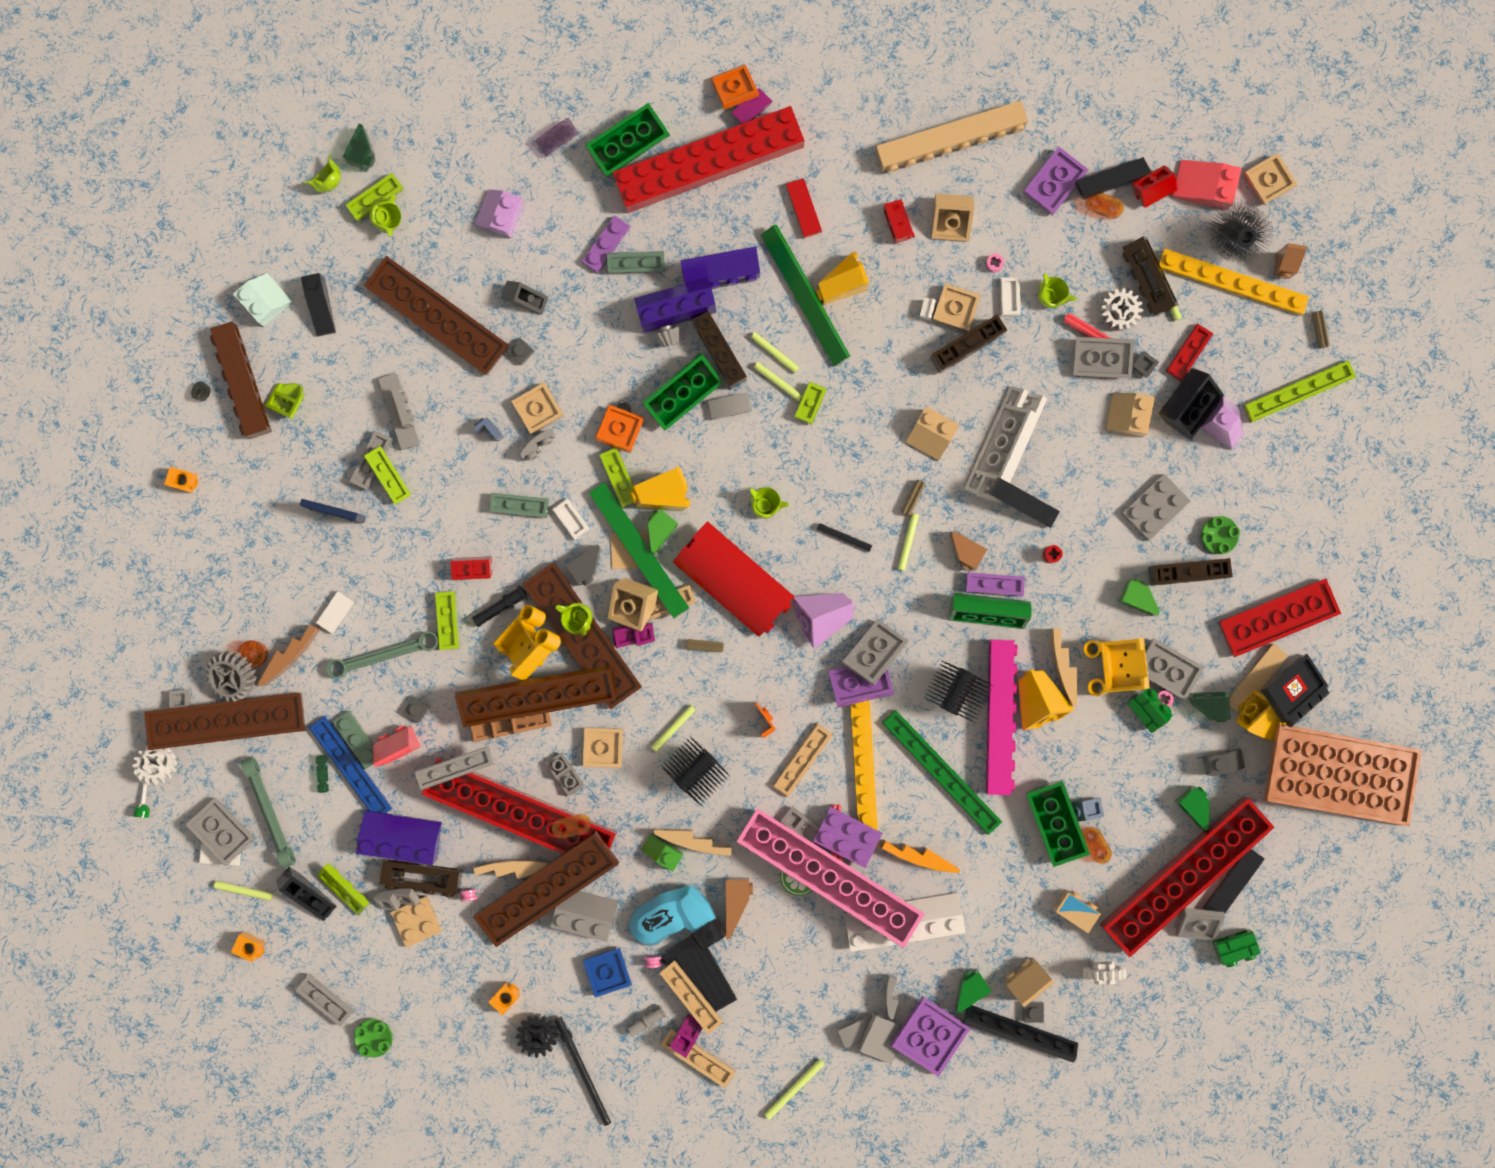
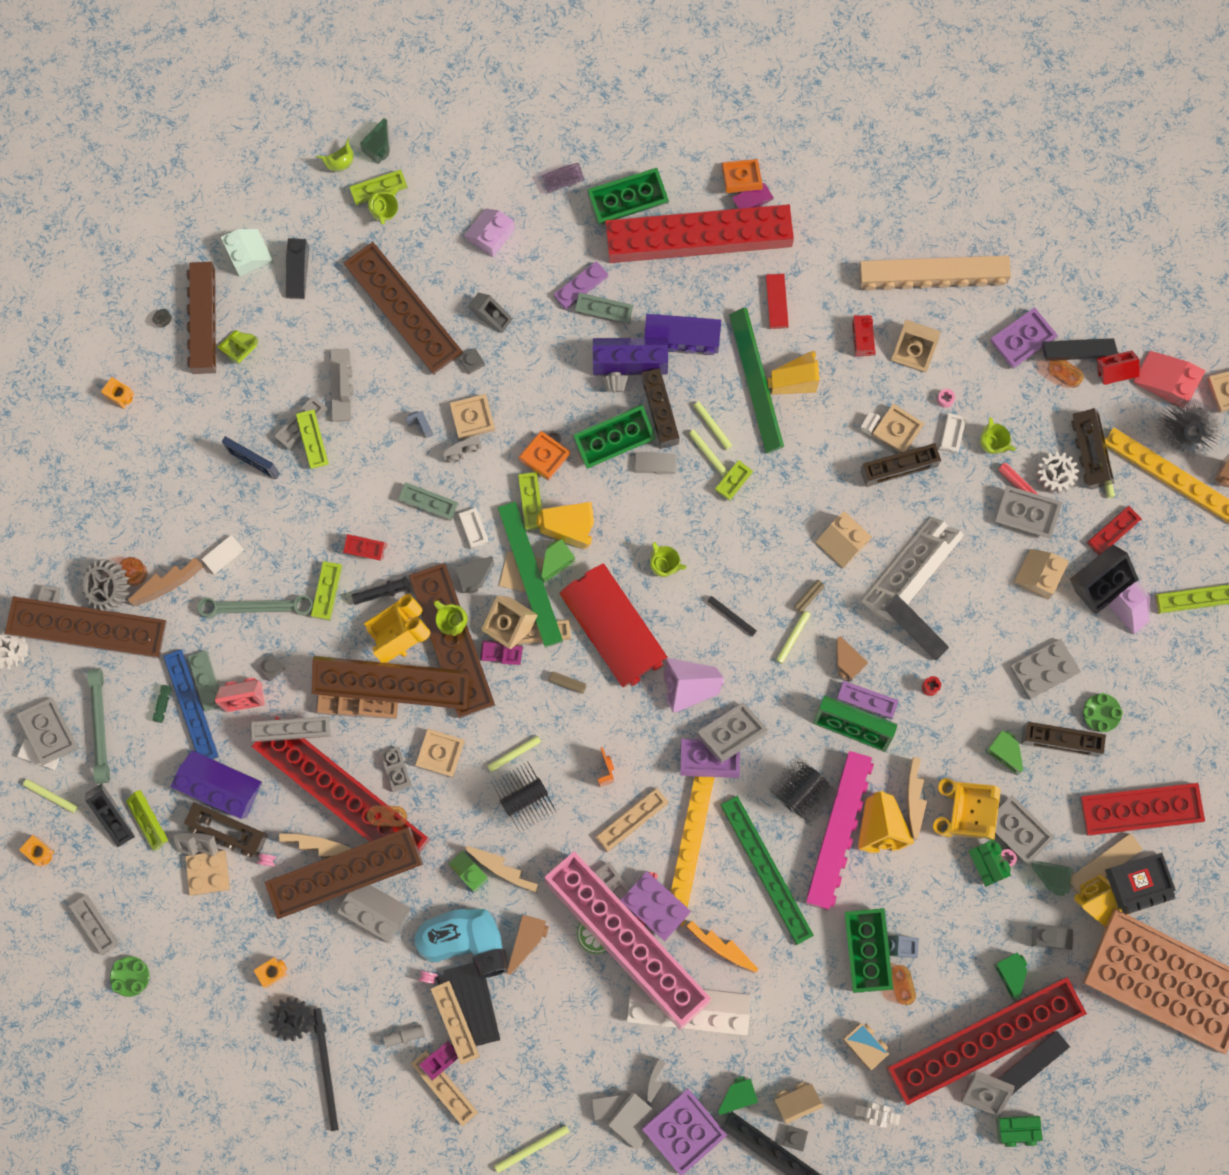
camera: 15 degrees right, 10 degrees down
(607, 972) = (379, 975): blue plate -> none
(1145, 364) = (1067, 530): dark grey plate -> none

